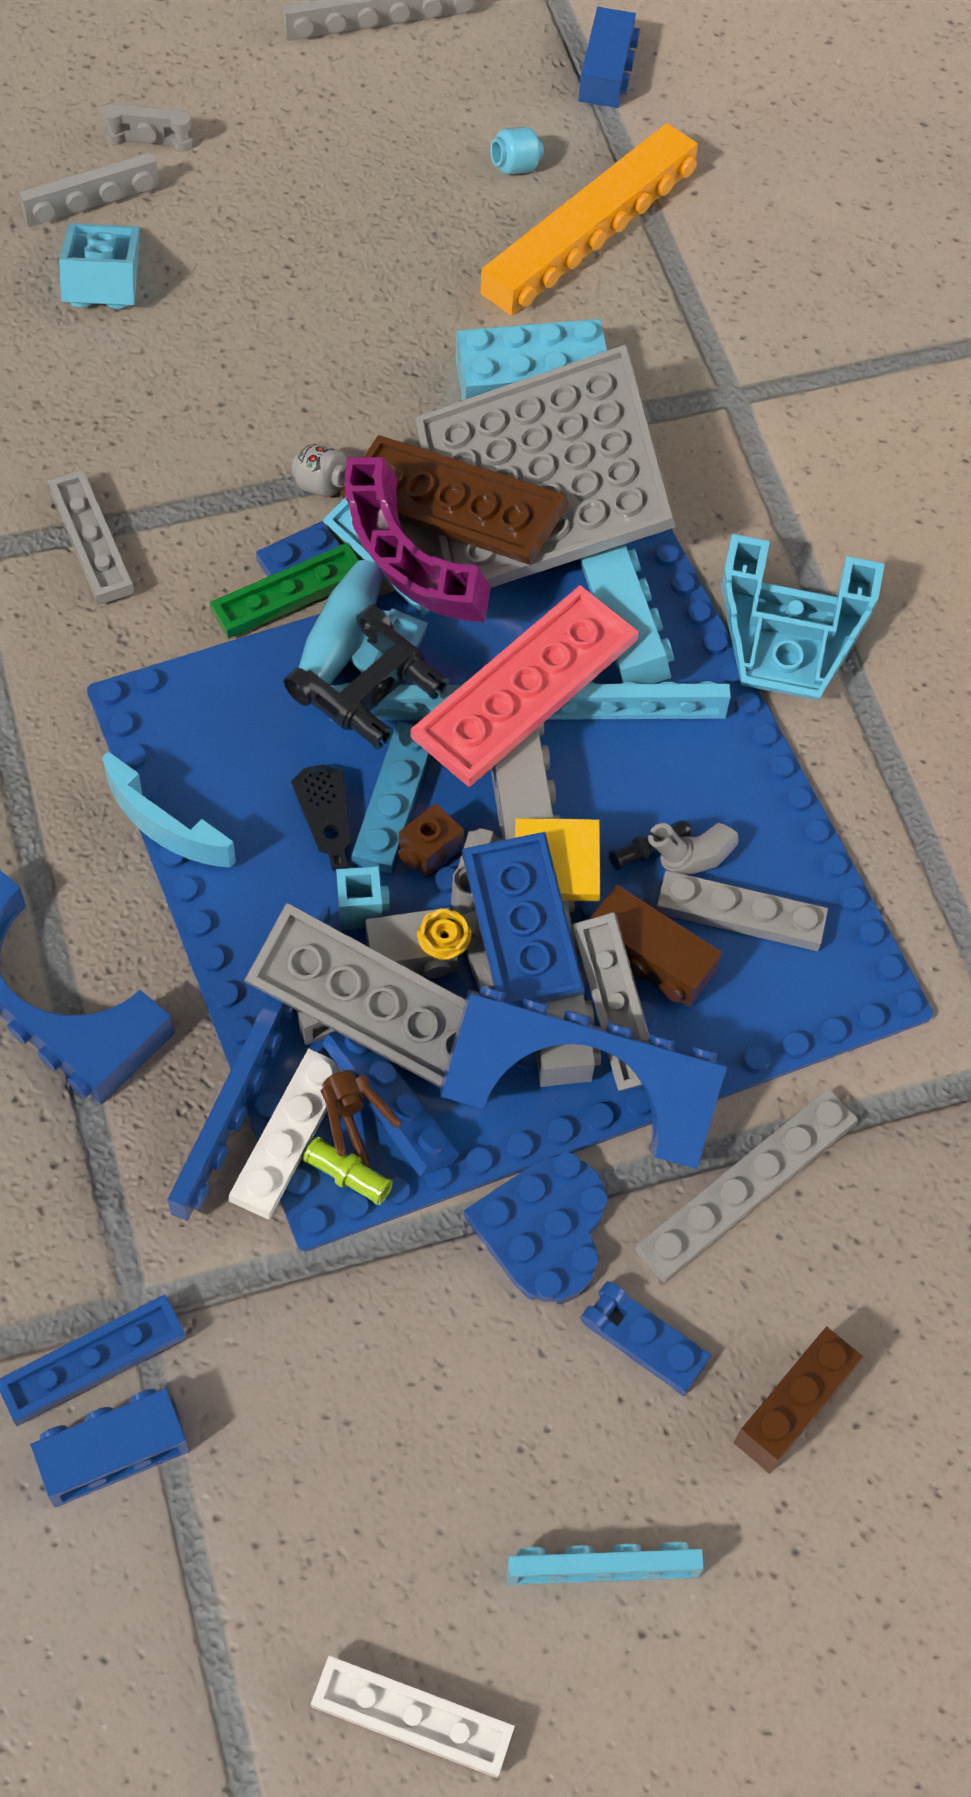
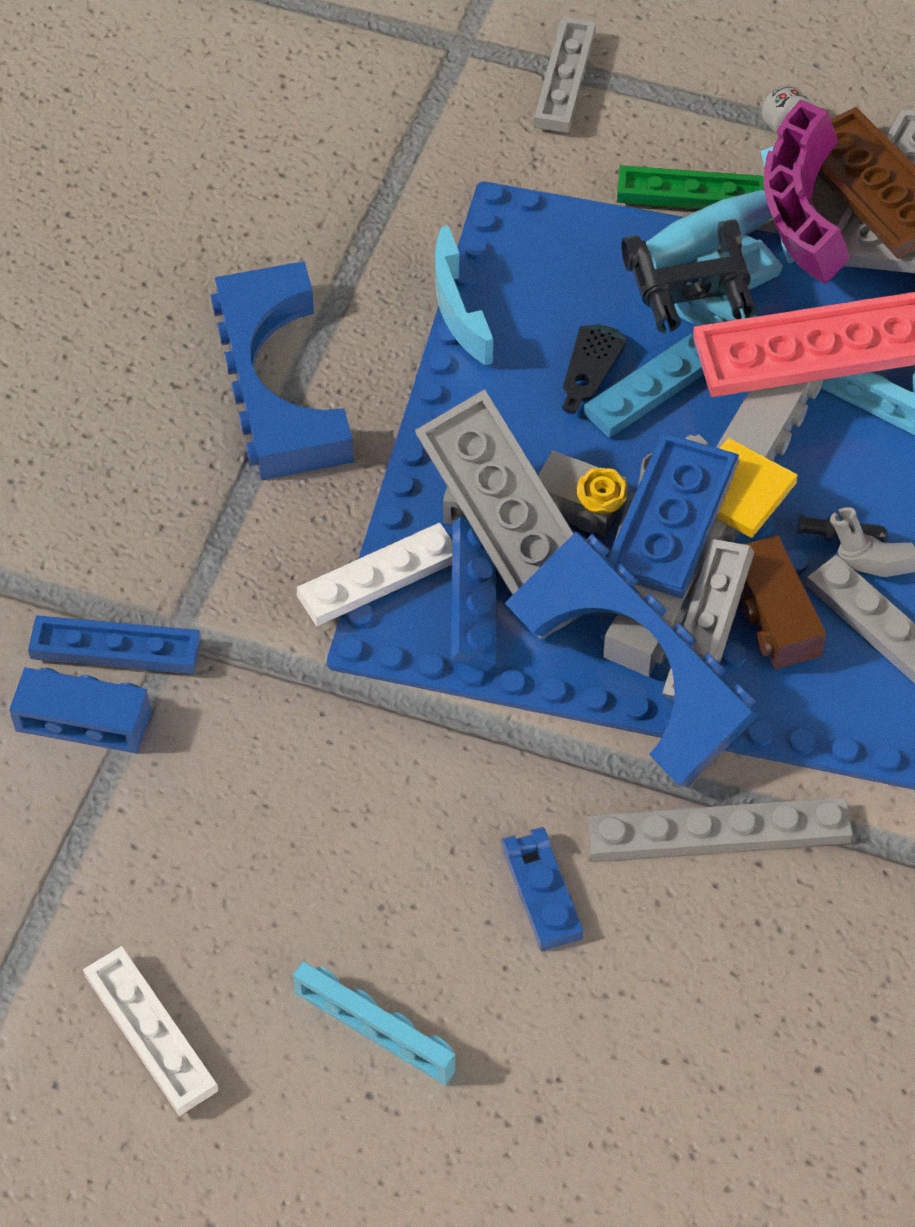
camera: 40 degrees right, 5 degrees down
(229, 1109) = (356, 520): blue plate -> none
(296, 548) = (724, 161): blue plate -> none
(345, 1096) = (437, 565): reddish brown plant -> none
(348, 1171) = (401, 625): lime pin -> none
(360, 896) = (563, 431): medium azure brick -> none
(430, 841) = (647, 422): reddish brown brick -> none
(543, 1227) = (527, 758): blue plate -> none
(797, 1399) = (626, 1004): reddish brown brick -> none

